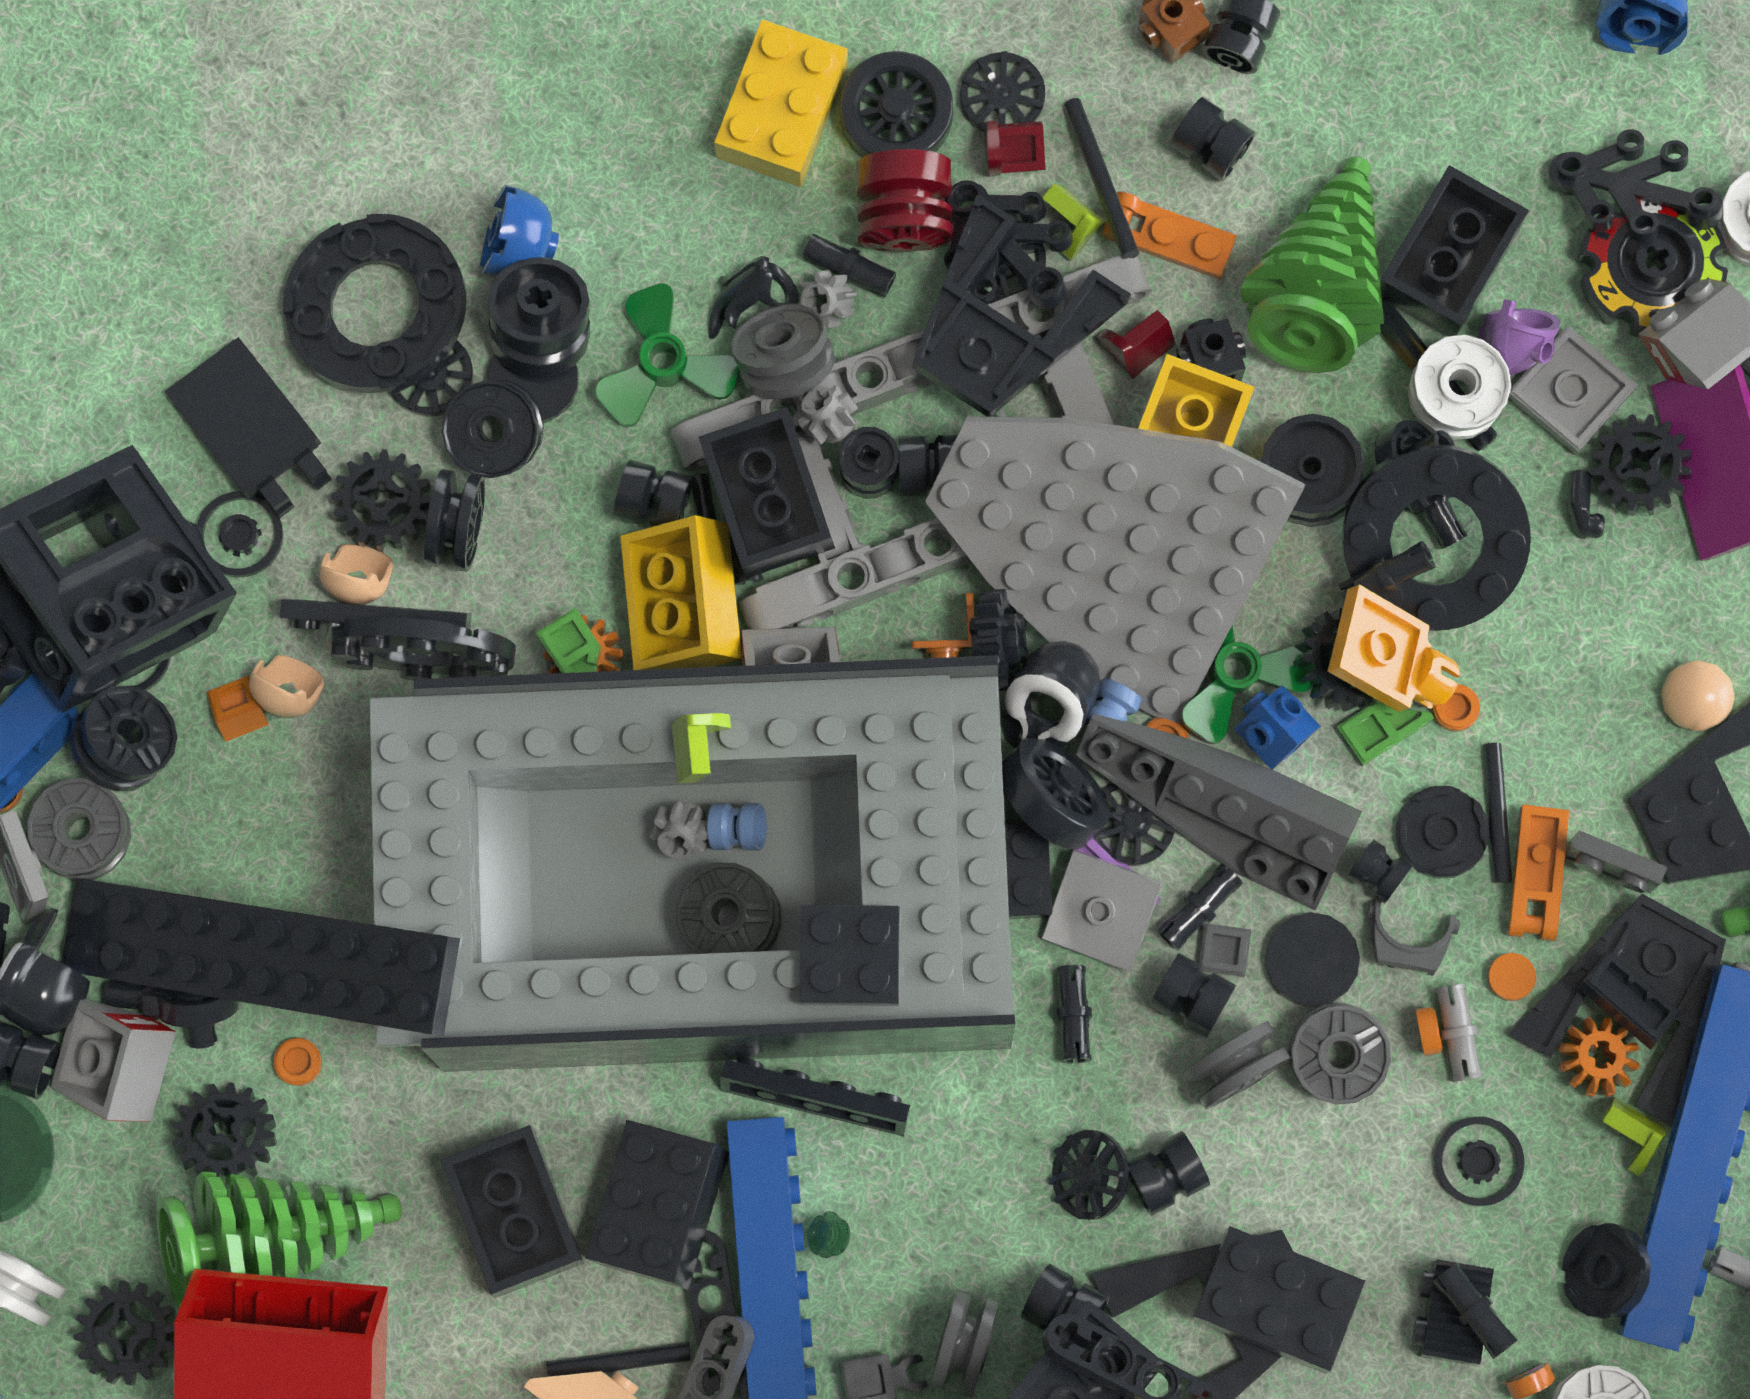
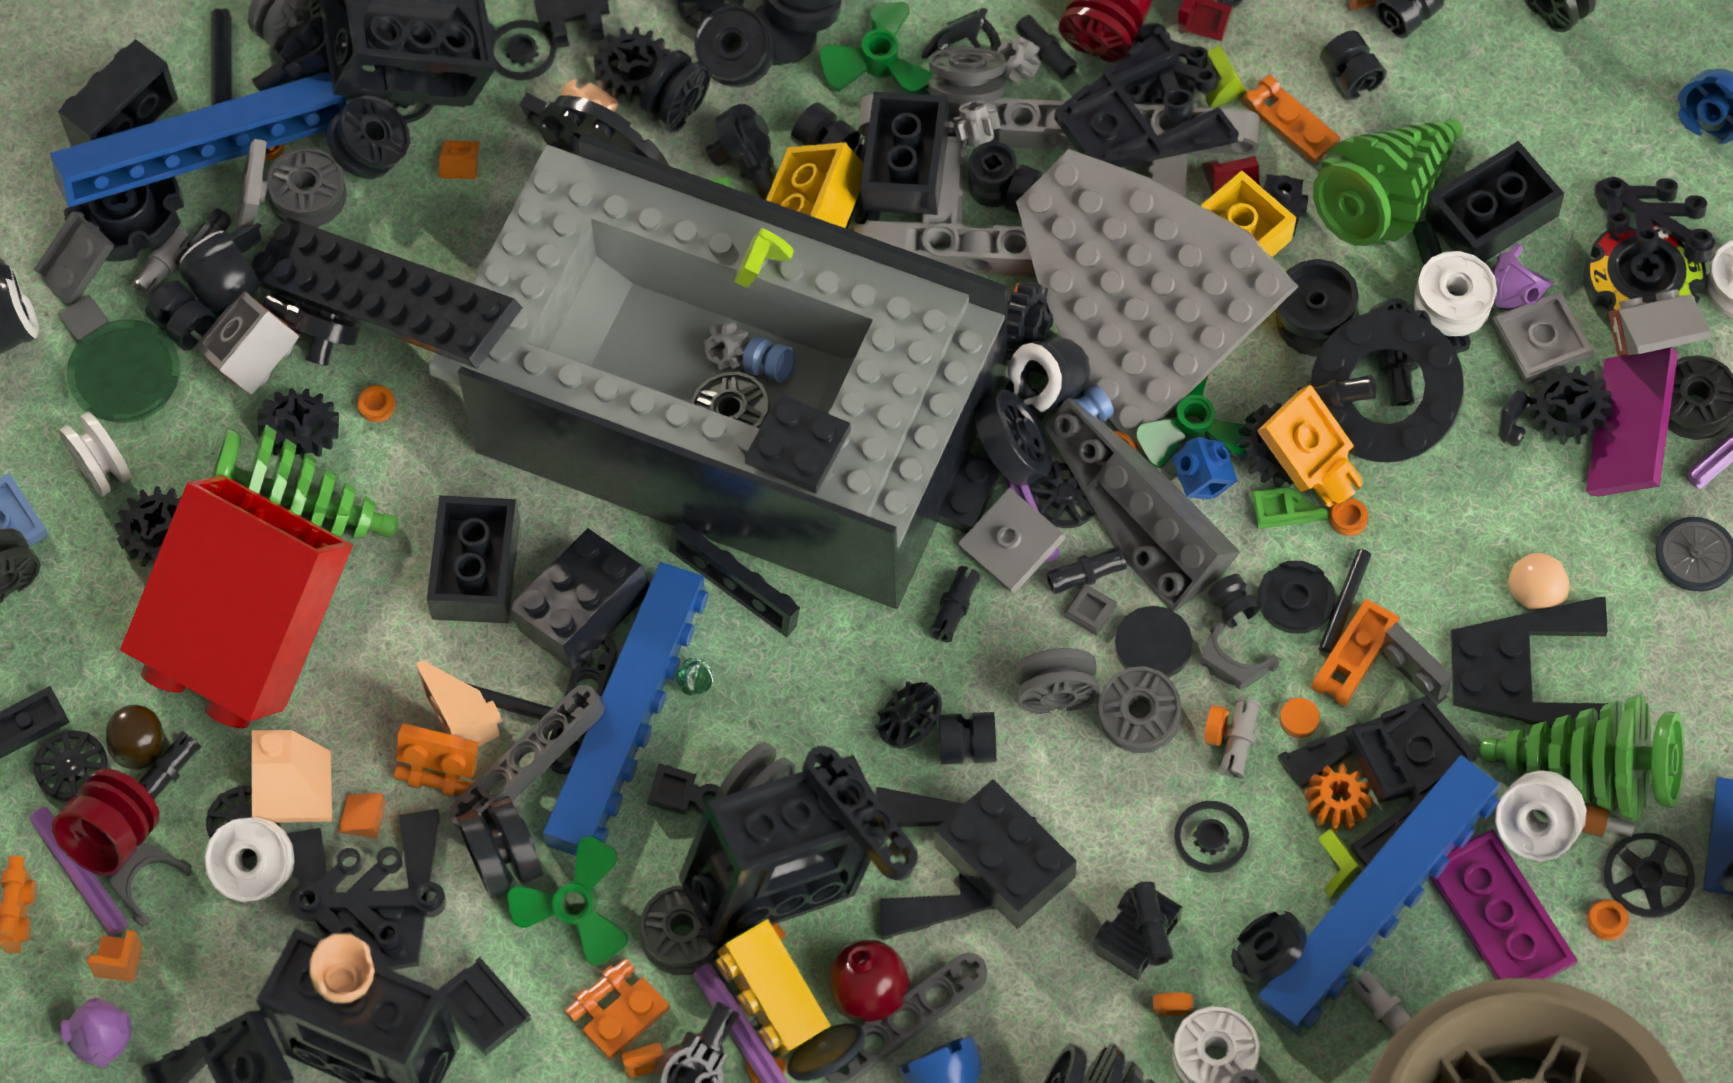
camera: 25 degrees right, 15 degrees down
(265, 688) = (499, 156): light nougat hair -> none
(569, 553) = (746, 140): none -> black pin
(1101, 178) = (1257, 62): black bar -> none
(1192, 995) = (1046, 621): black wheel -> none

